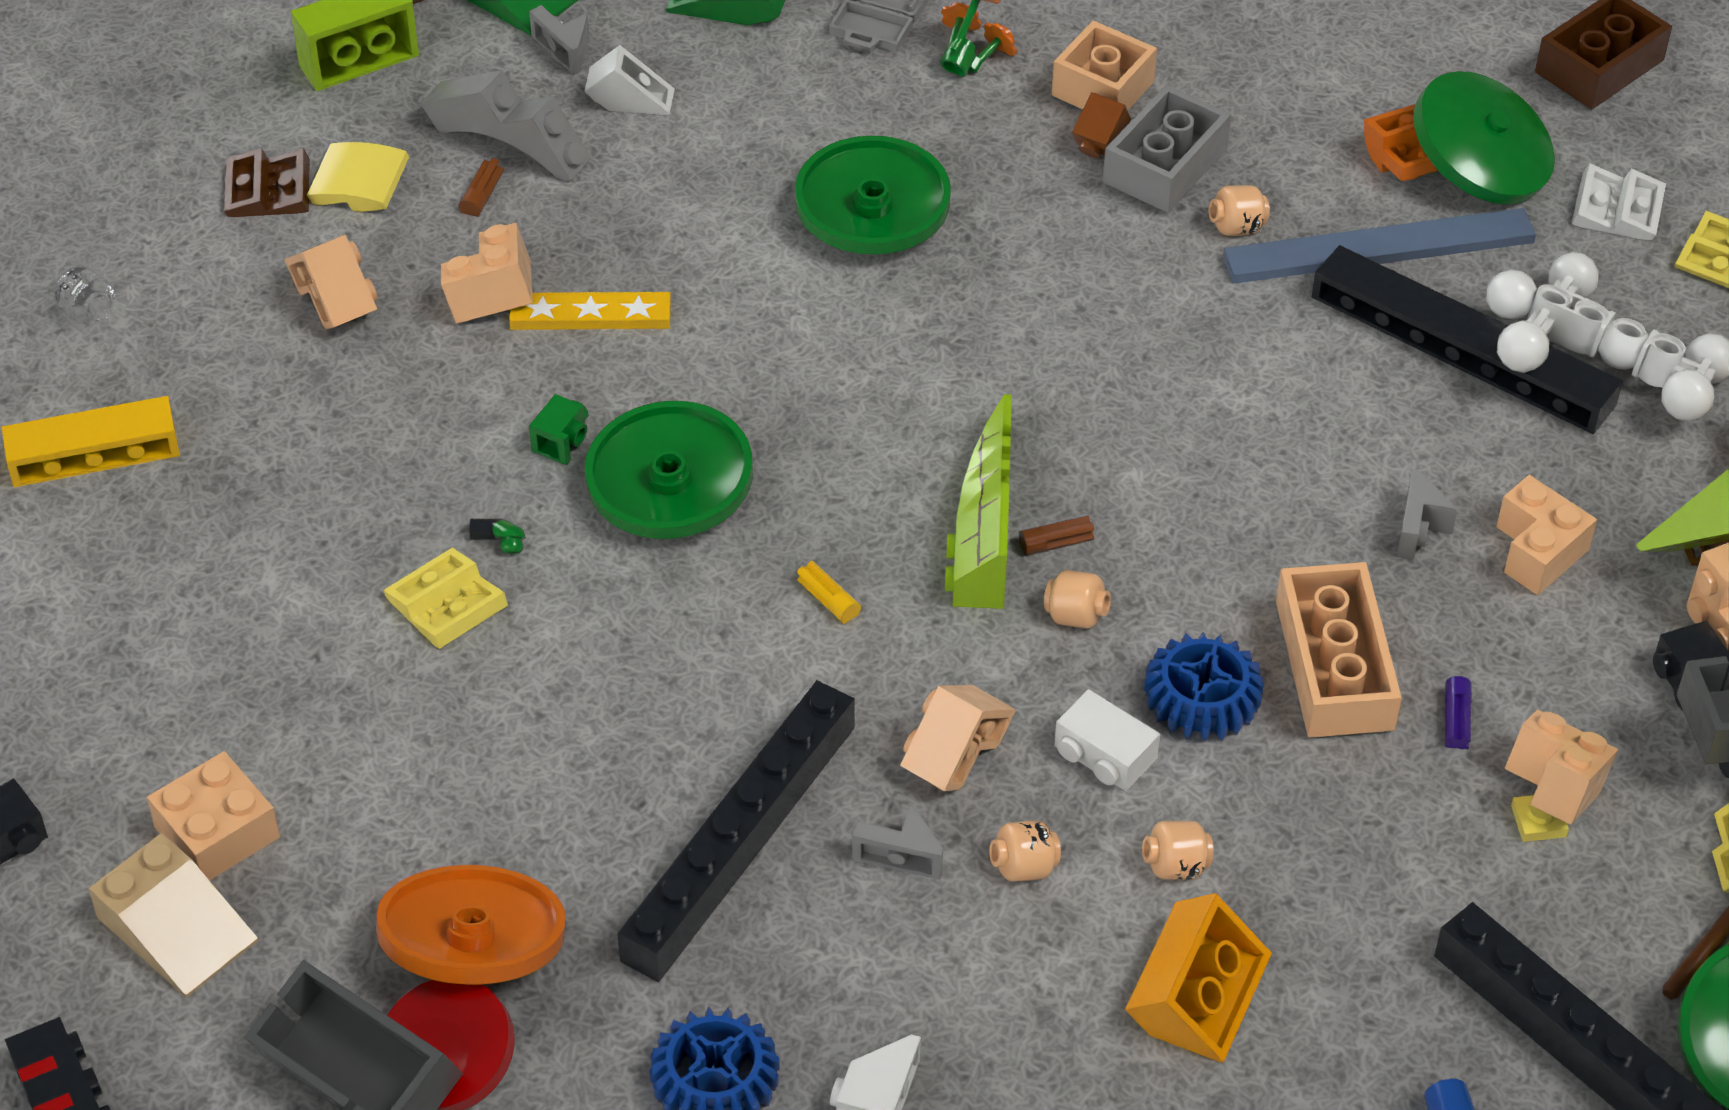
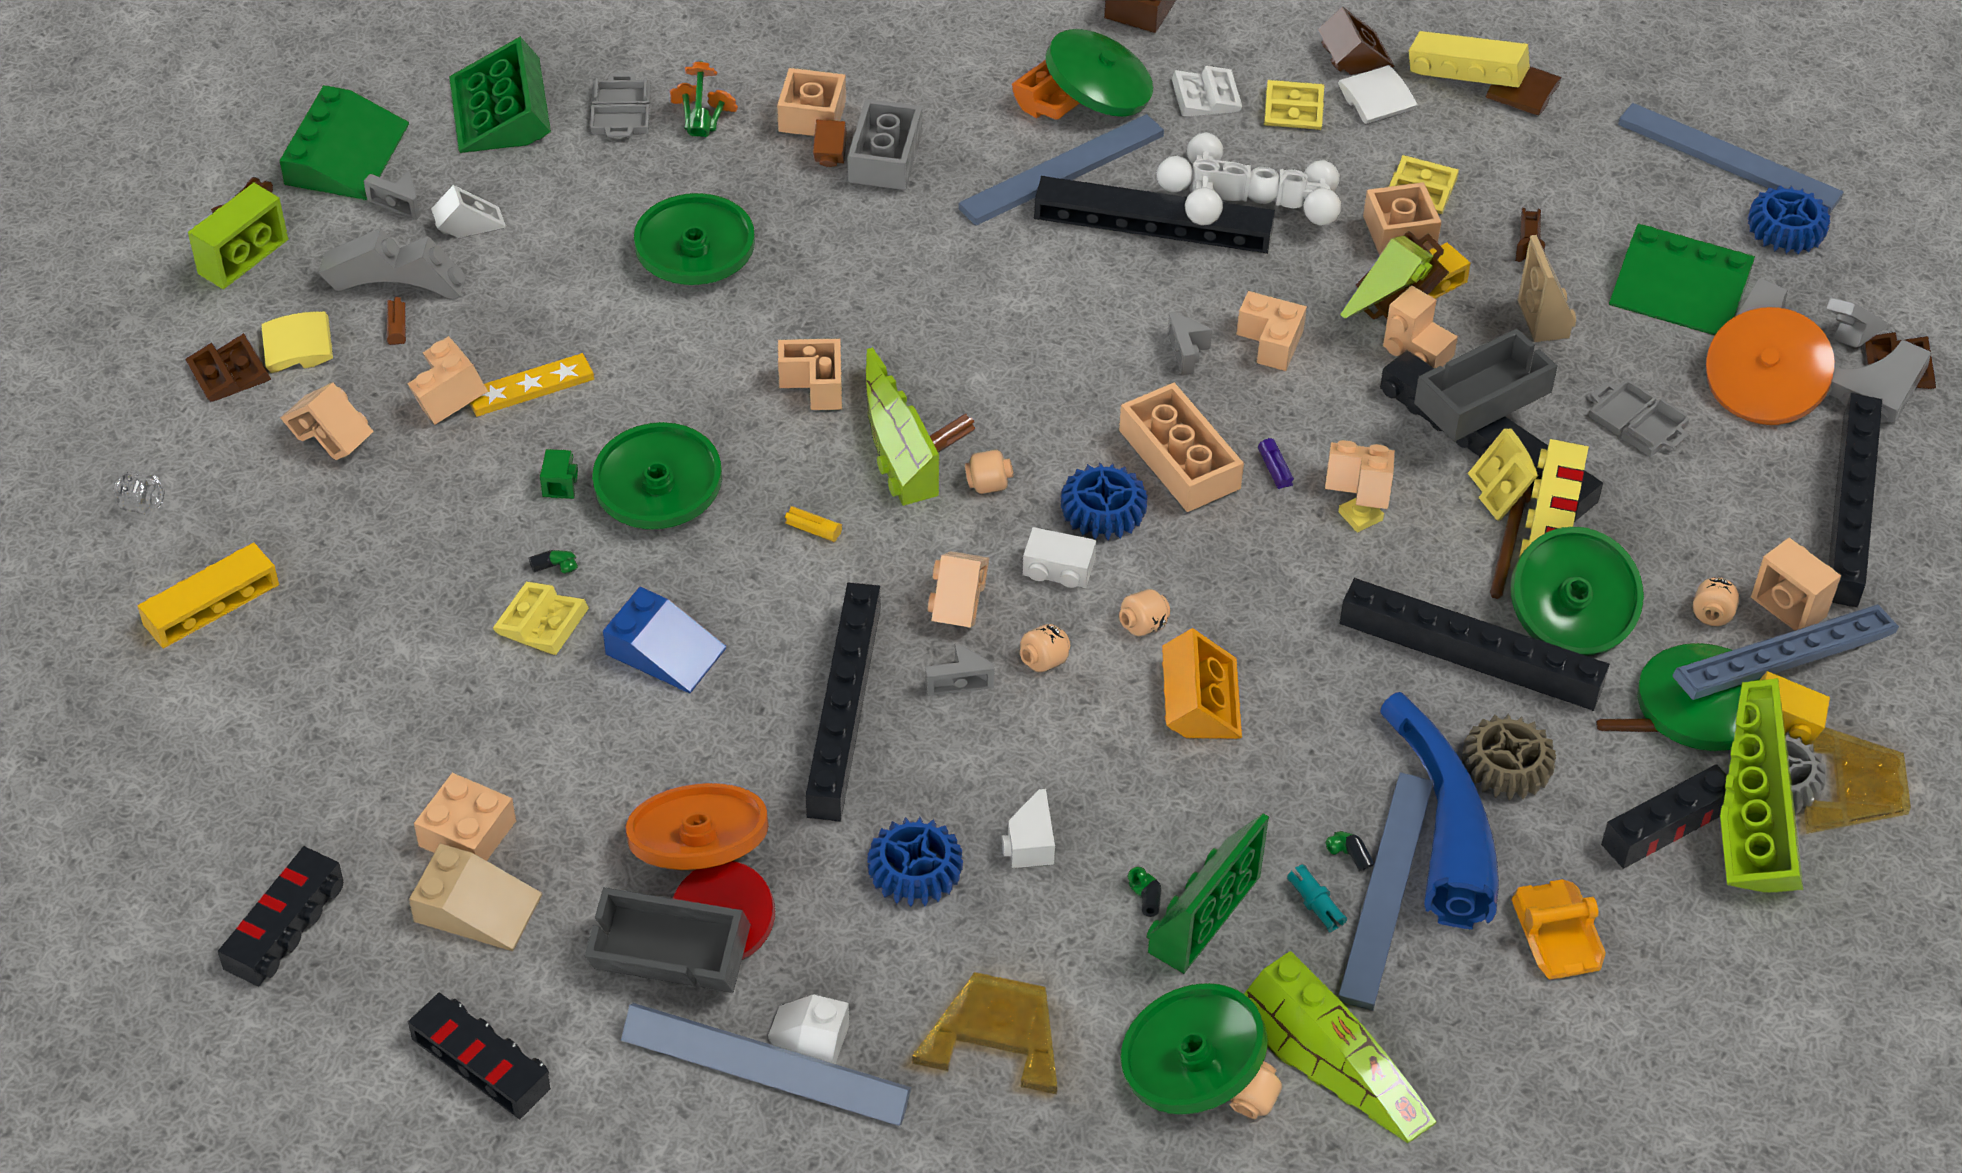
camera: 25 degrees left, 0 degrees up
(565, 675) = (661, 641): none -> slope
(931, 399) = (813, 366): none -> light nougat brick
(1239, 210) = (956, 173): light nougat head -> none

